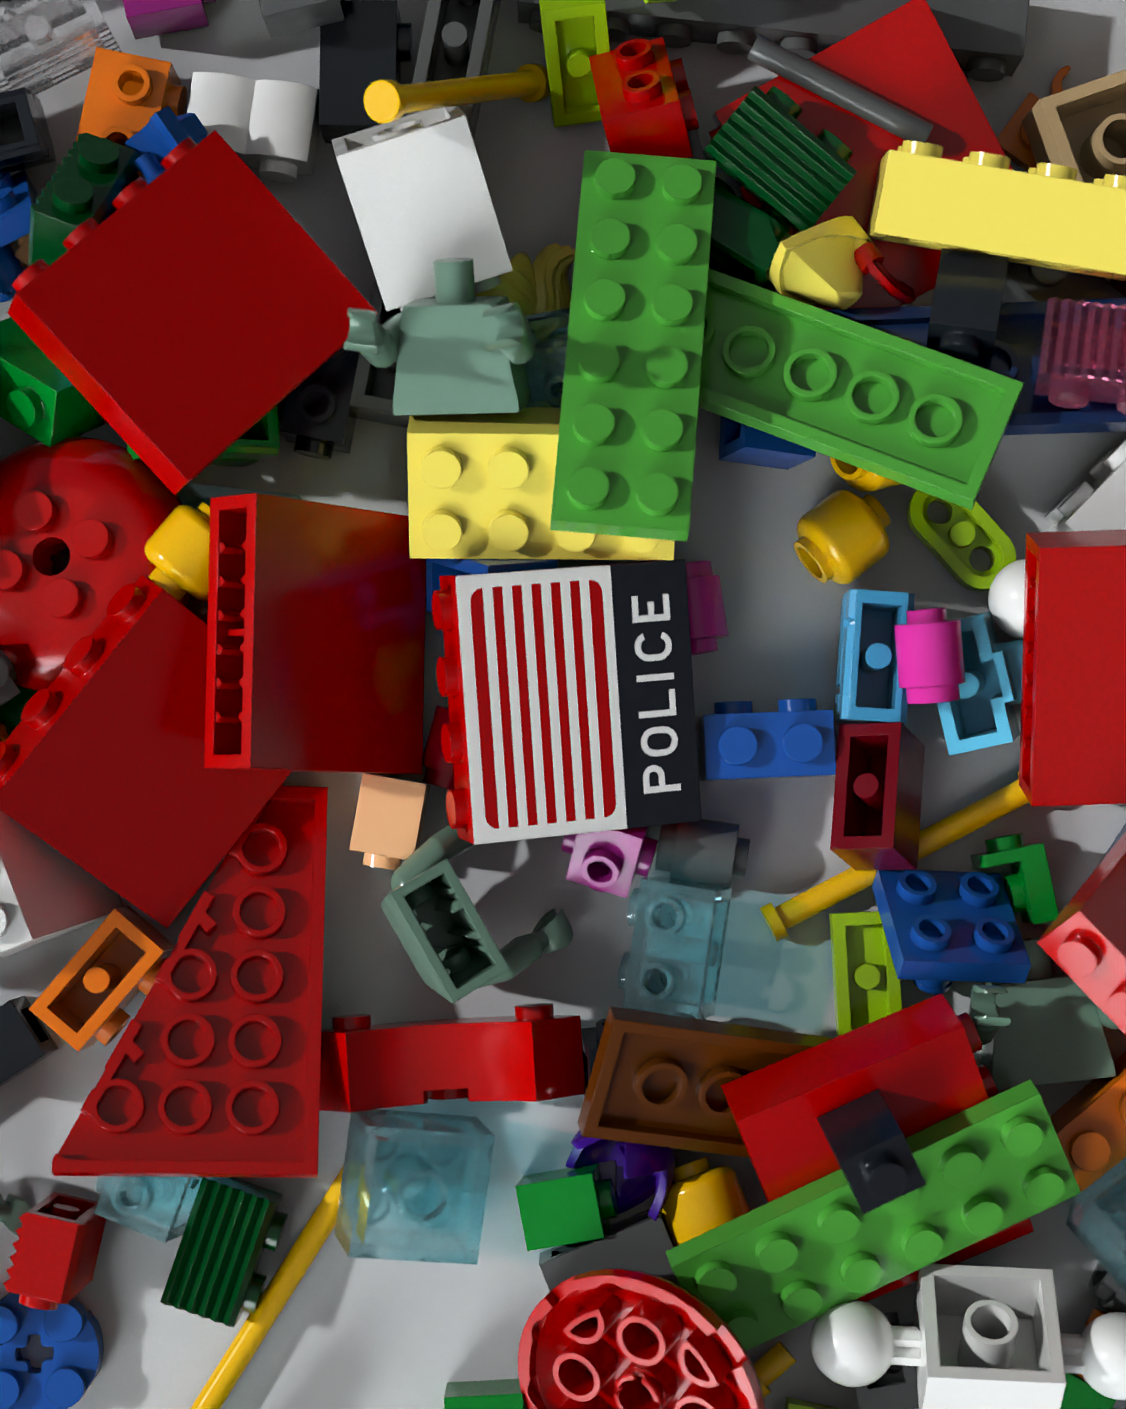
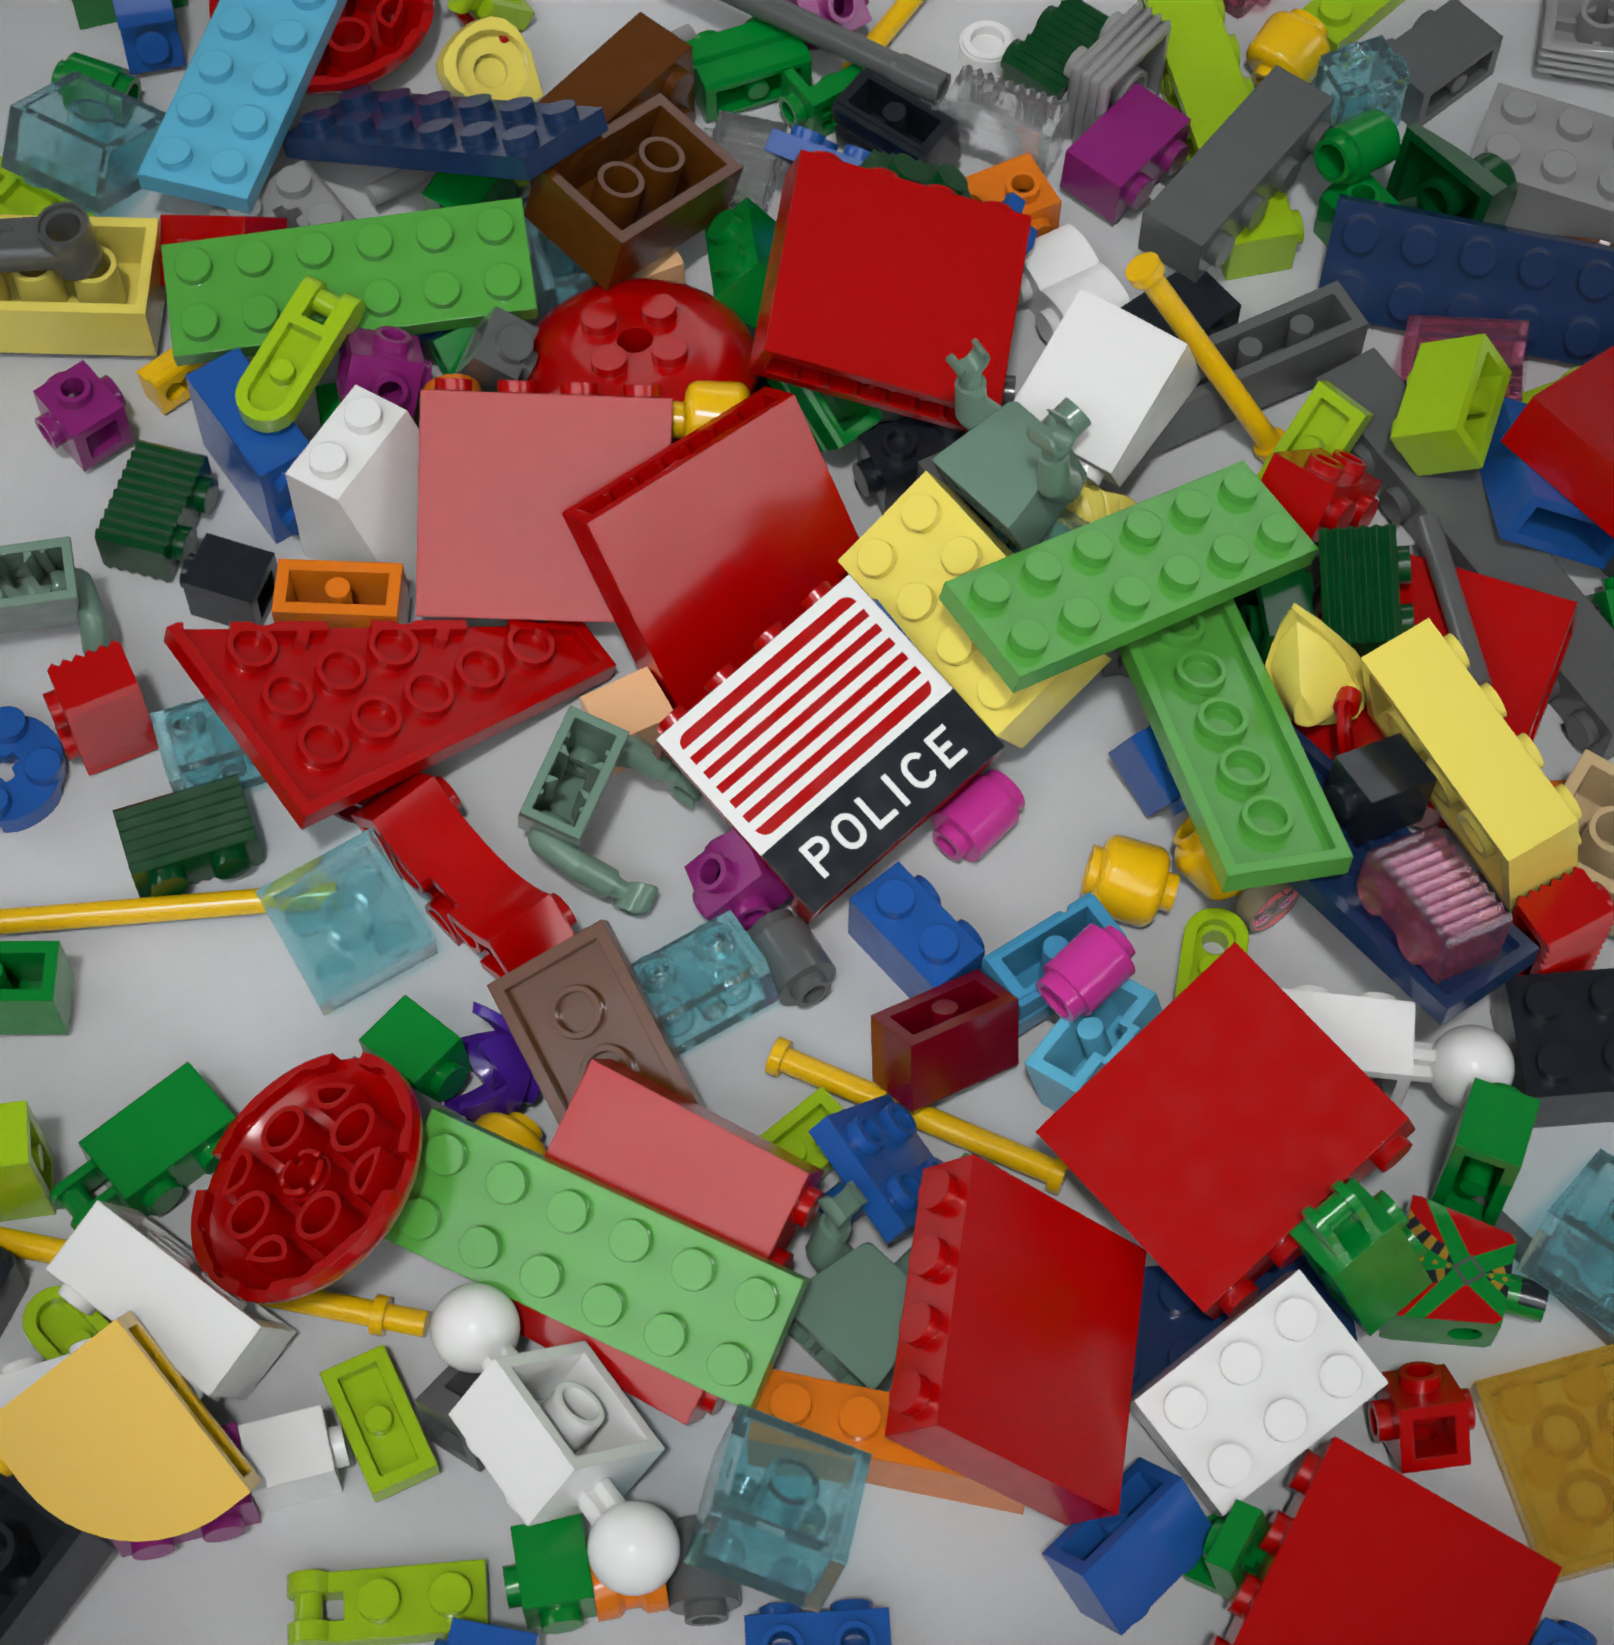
camera: 50 degrees right, 25 degrees down
(871, 1151) = (648, 1171): black brick -> none

